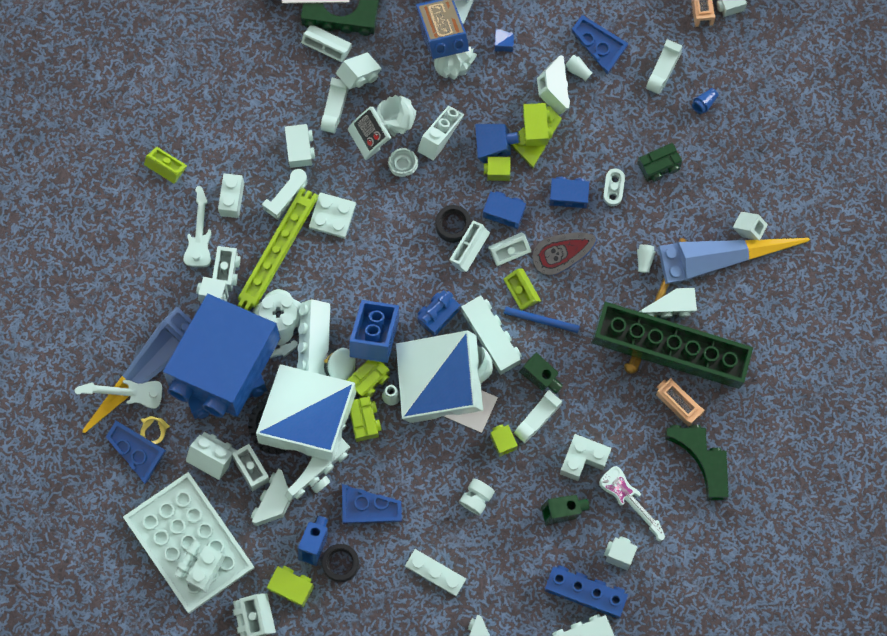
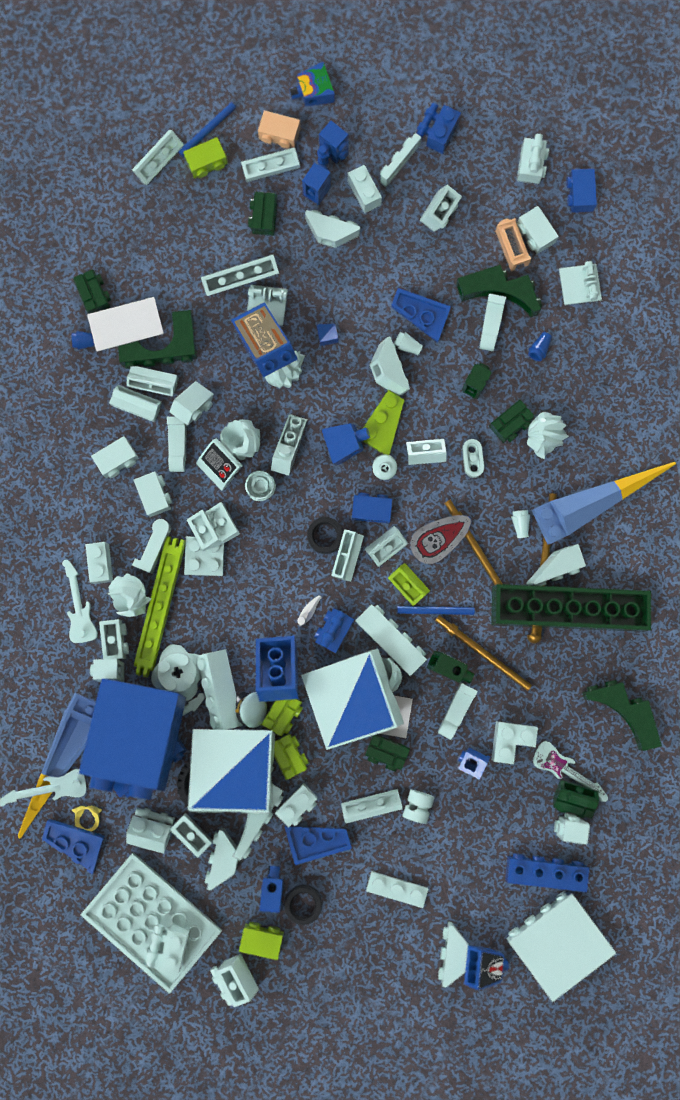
camera: 10 degrees left, 10 degrees up
(164, 164) = (25, 545): lime slope -> none
(251, 231) = (128, 595): none -> light aqua hair
(273, 103) = (115, 457): none -> light aqua brick
(304, 60) = (135, 403): none -> light aqua piece
(321, 484) = (266, 830): light aqua tile -> none
(348, 189) = (213, 527): none -> light aqua slope
(359, 465) = (296, 805): none -> light aqua brick
(391, 399) = (309, 718): light aqua cone -> none
(418, 290) = (308, 611): none -> white bar
(431, 486) = (371, 806): none -> light aqua plate
(459, 438) = (386, 751): none -> dark green brick
(497, 169) = (354, 468): lime brick -> none
(503, 440) = (429, 742): lime brick -> none
(527, 180) = (386, 460): none -> light aqua head
(534, 465) = (474, 769): none -> brick
(535, 124) = (382, 415): lime brick -> none
(553, 341) = (452, 629): none -> pearl gold bar
(556, 509) = (498, 801): dark green torso -> none
(569, 192) = (431, 475): blue brick -> none
(570, 169) = (426, 451): none -> light aqua slope
(594, 267) = (475, 546): none -> pearl gold bar
(632, 527) = (575, 799): none -> dark green brick
(634, 115) = (476, 380): none -> dark green brick
(676, 29) = (495, 282): none -> dark green arch
(679, 401) = (590, 661): light nougat window -> none
(689, 180) = (546, 433): none -> light aqua hair
(750, 226) = (616, 465): light aqua brick -> none
(758, 53) = (580, 284): none -> light aqua hinge

